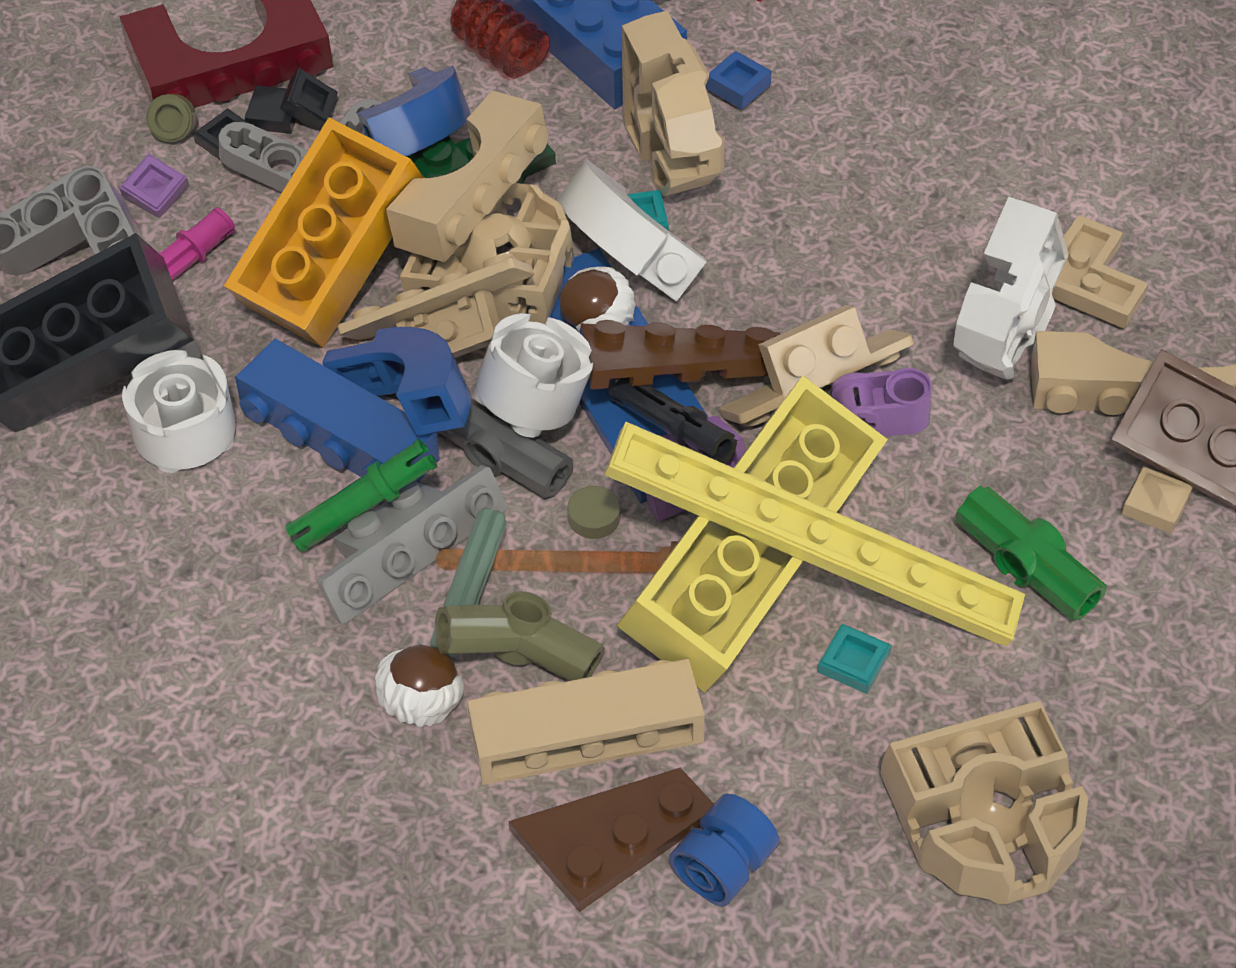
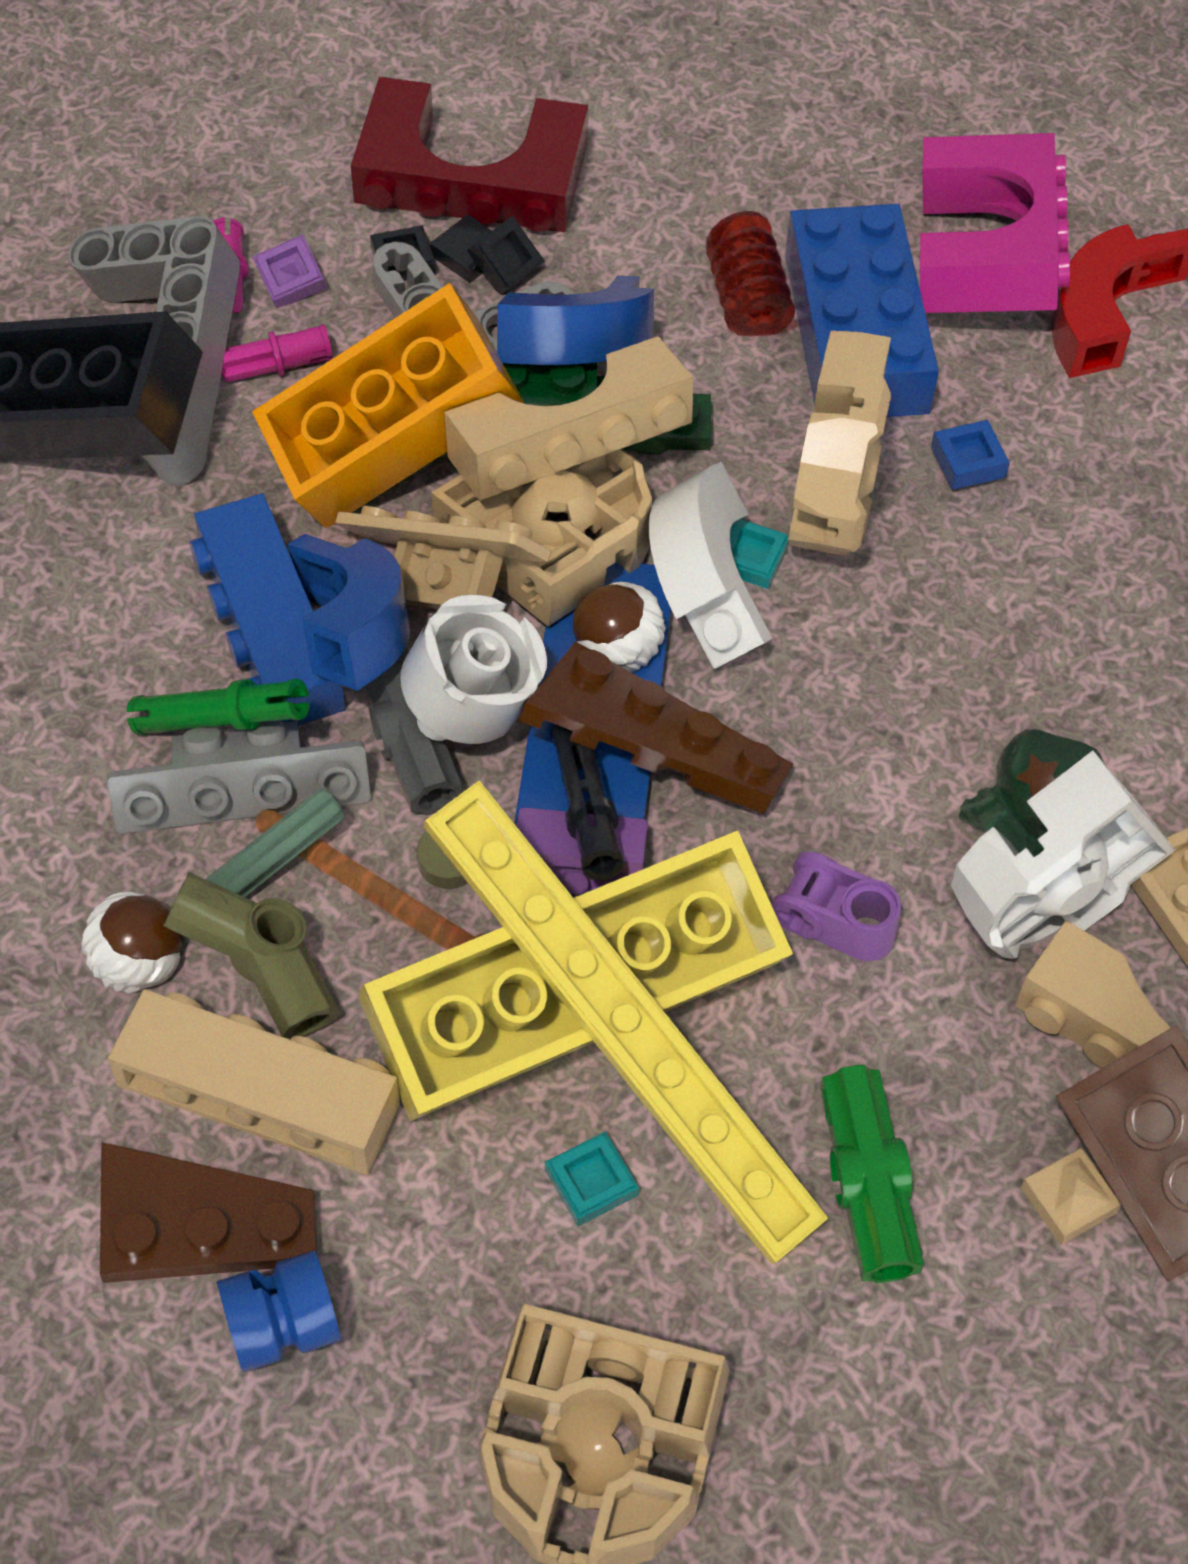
camera: 30 degrees right, 5 degrees up
(171, 117) = (358, 208): olive tile -> none
(179, 410) = (122, 520): white brick -> none
(819, 352) = (800, 814): tan bracket -> none
(947, 261) = (1022, 770): none -> clear green piece

